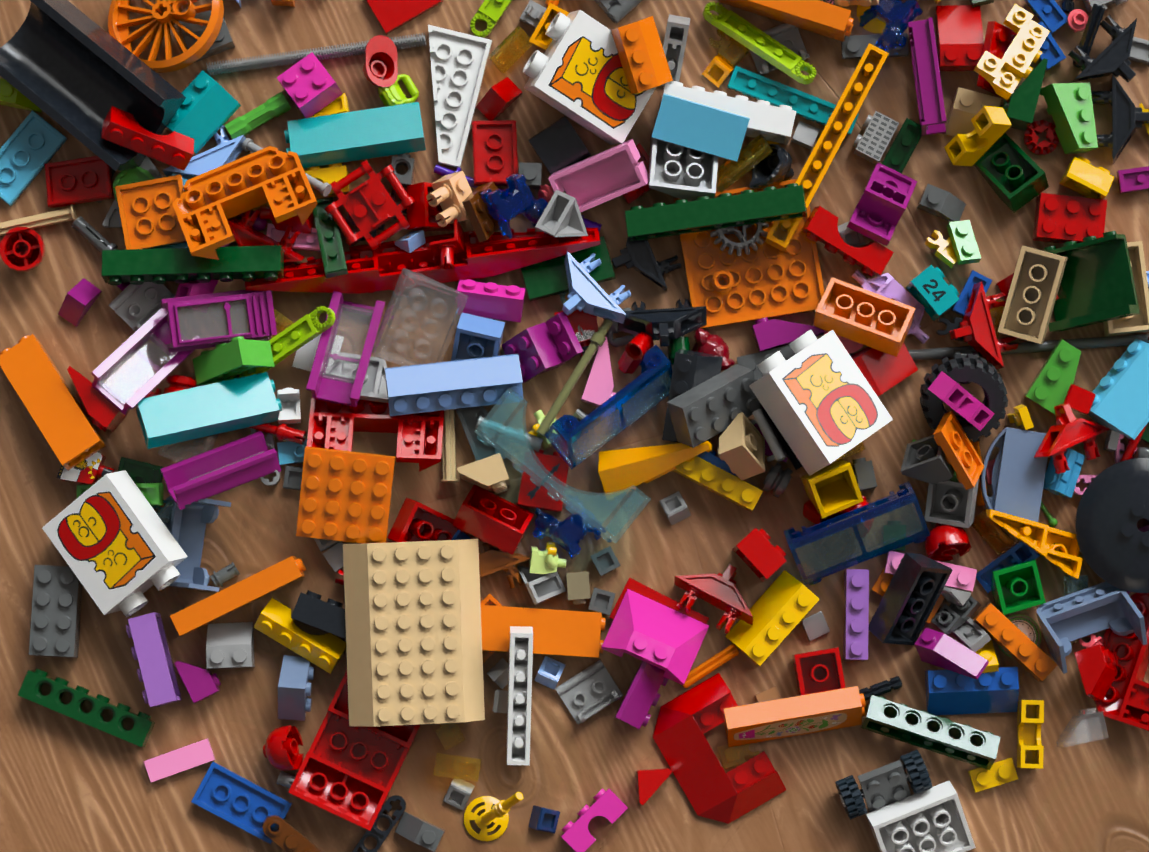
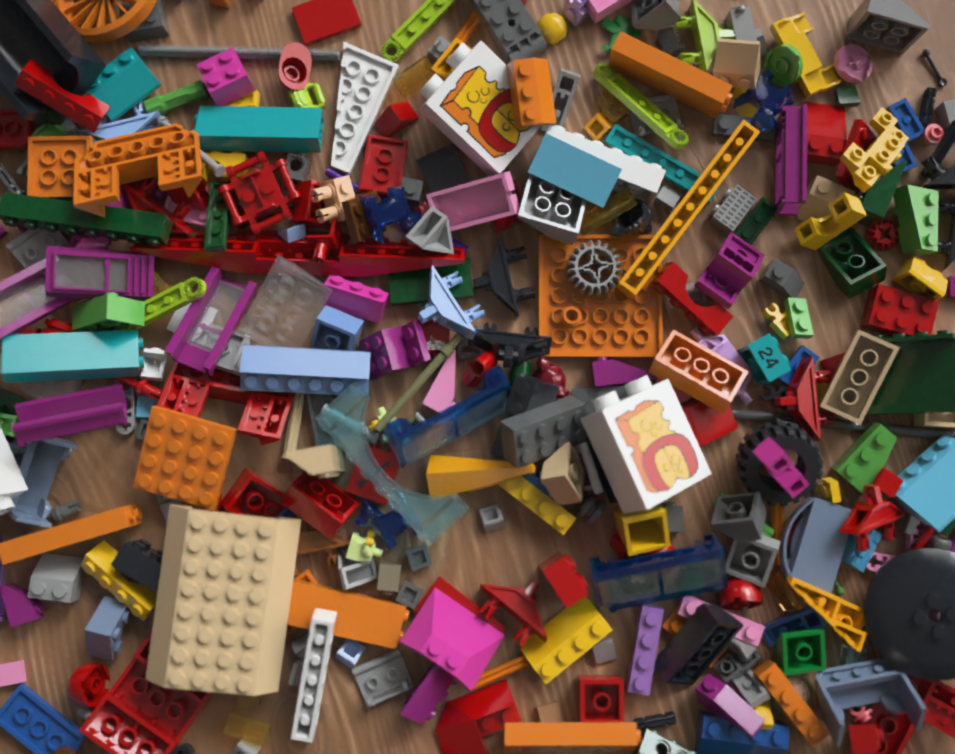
camera: 10 degrees right, 0 degrees up
(716, 213) = (576, 251): dark green brick -> none
(958, 450) = (769, 514): orange plate -> none

